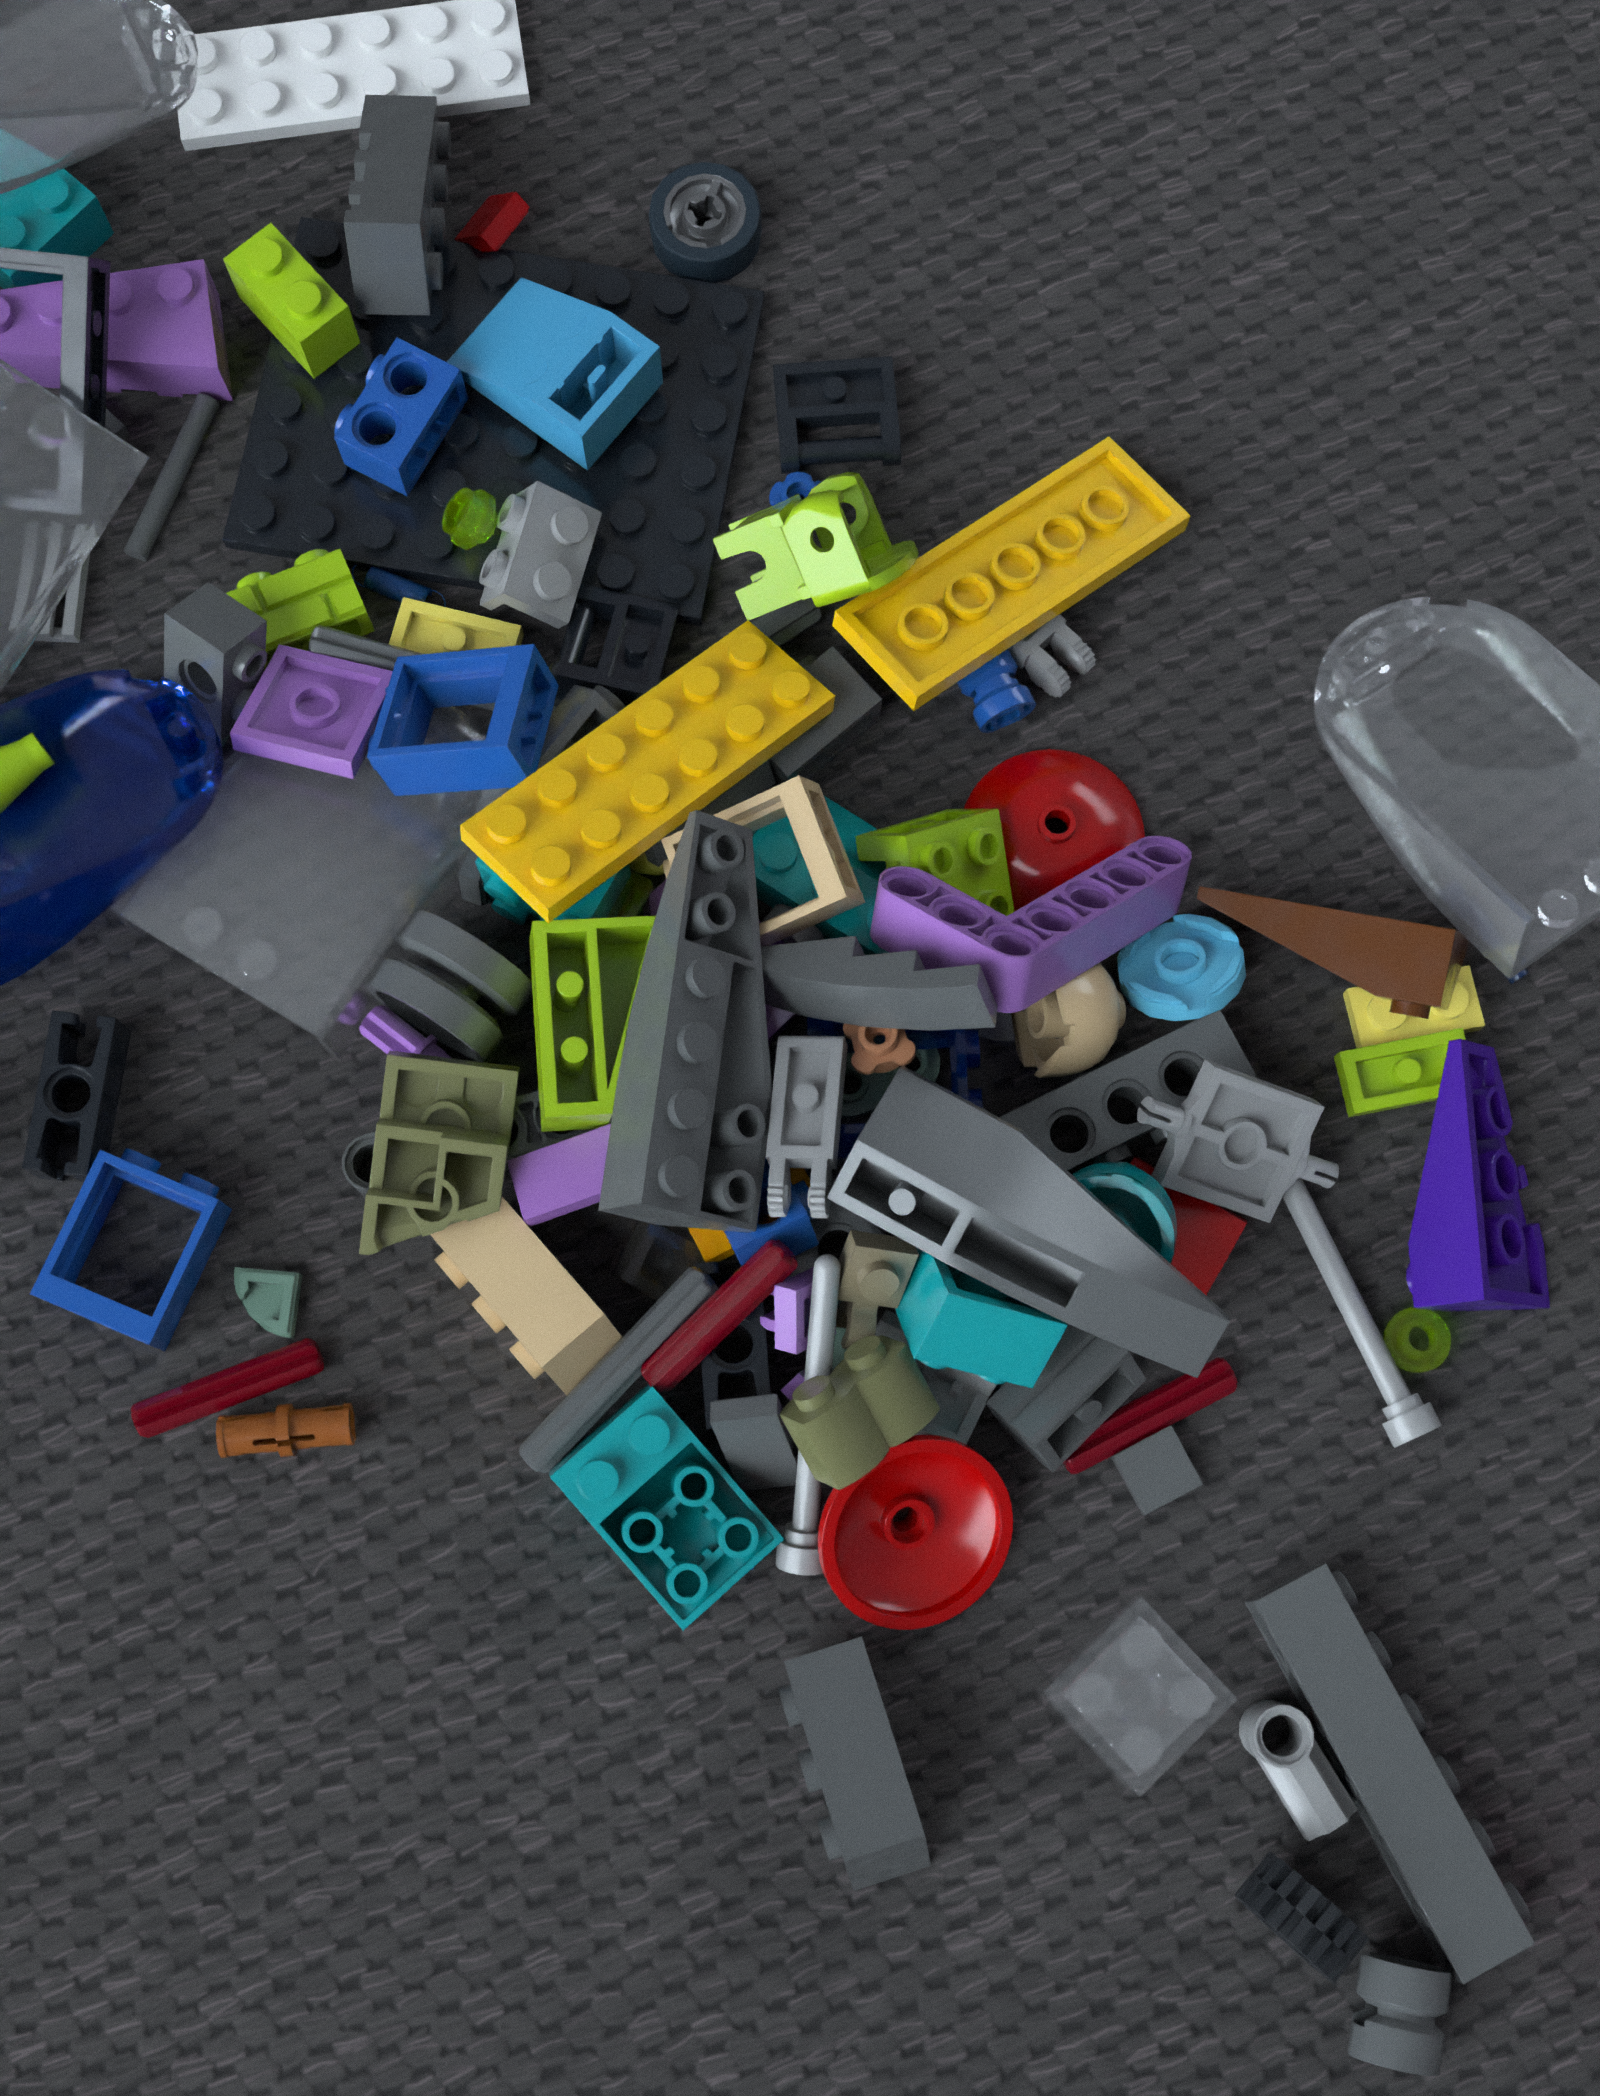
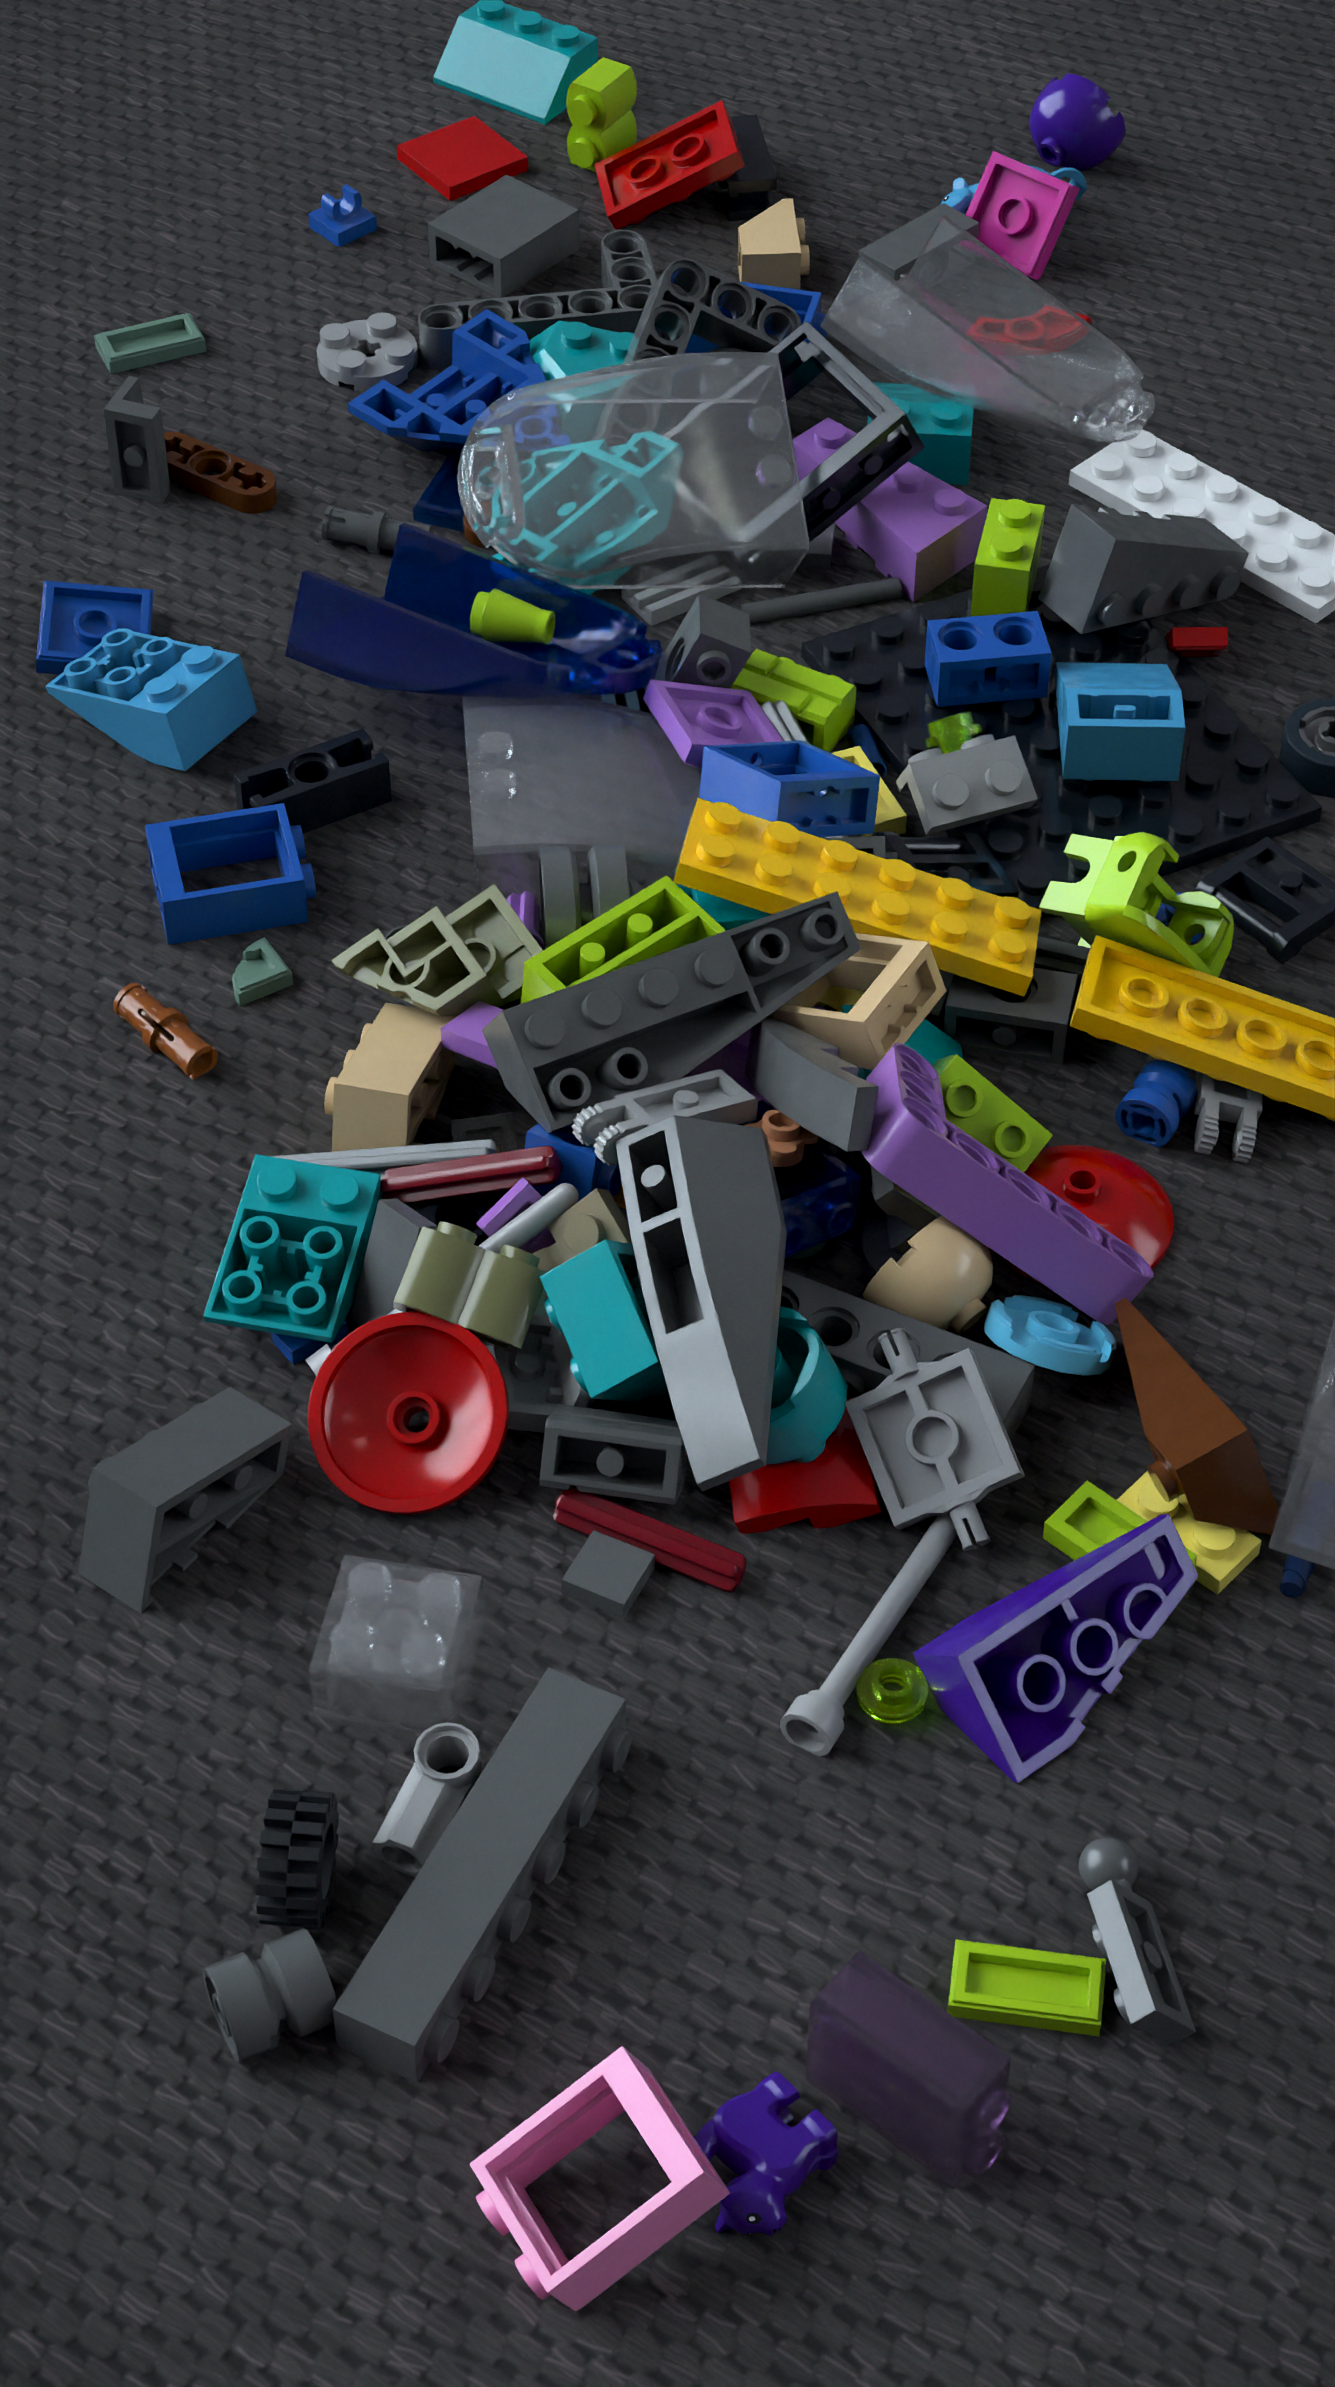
camera: 55 degrees right, 30 degrees down
(227, 1388) = (171, 985): dark red axle -> none

